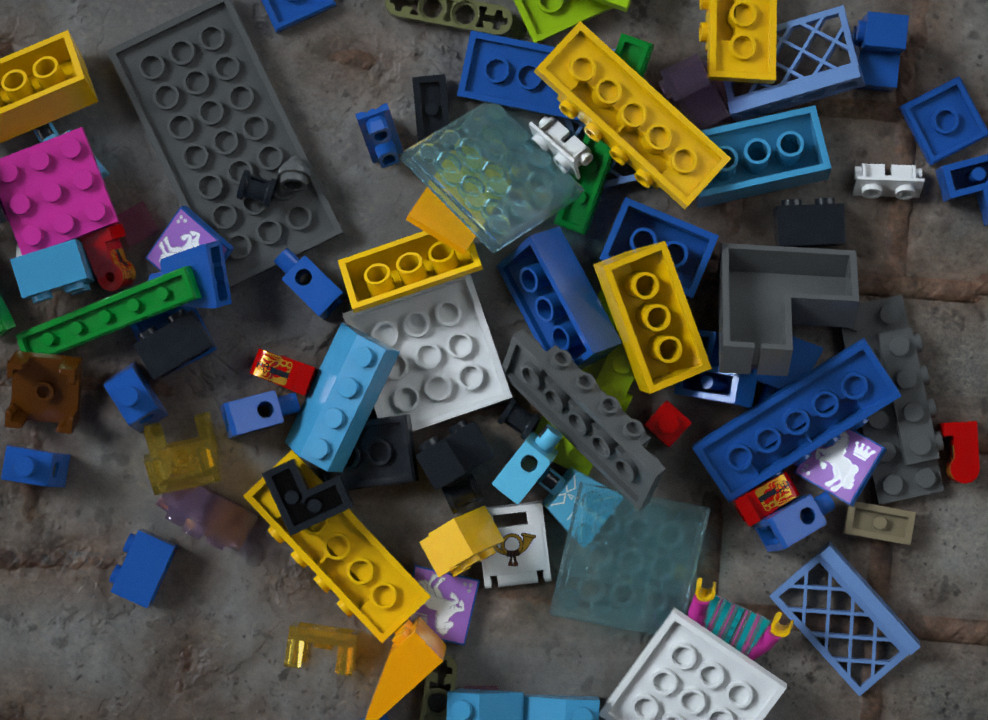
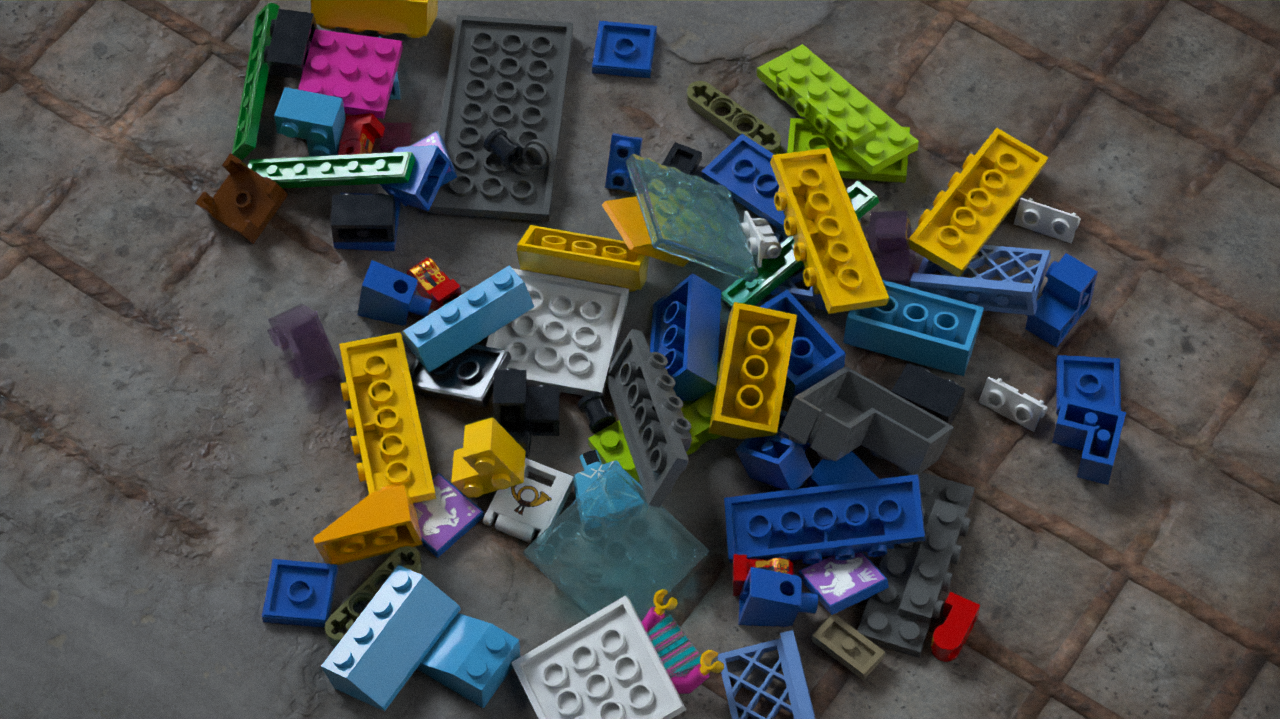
camera: 30 degrees right, 30 degrees down
(35, 466) = (196, 245): blue torso -> none
(135, 398) = (308, 230): blue torso -> none
(143, 567) = (225, 360): blue brick -> none
(183, 462) = (294, 288): clear yellow panel -> none
(298, 503) = (384, 362): black brick -> none
(320, 293) = (495, 225): blue torso -> none
(324, 638) = (325, 470): clear yellow panel -> none
(523, 470) = (579, 433): medium azure torso -> none
(667, 423) = (715, 476): red brick -> none

